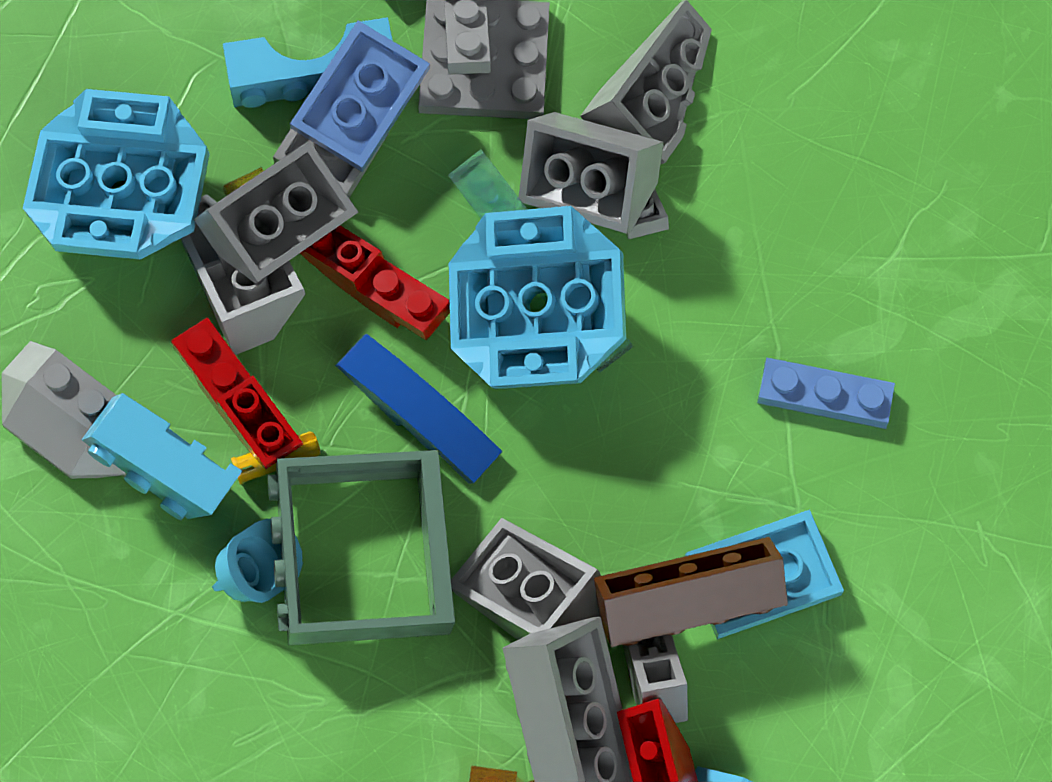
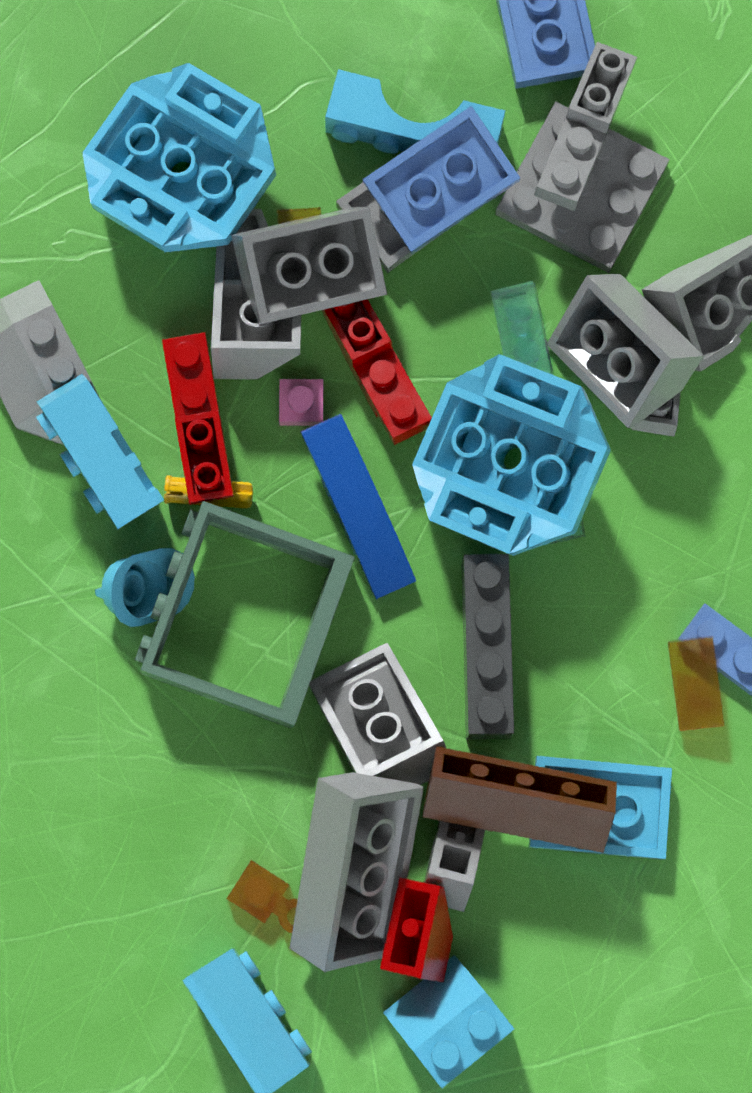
camera: 25 degrees right, 10 degrees up
(322, 343) = (300, 402): none -> bright pink plate
(594, 478) = (487, 646): none -> dark grey brick
(794, 428) = (696, 683): none -> clear orange tile

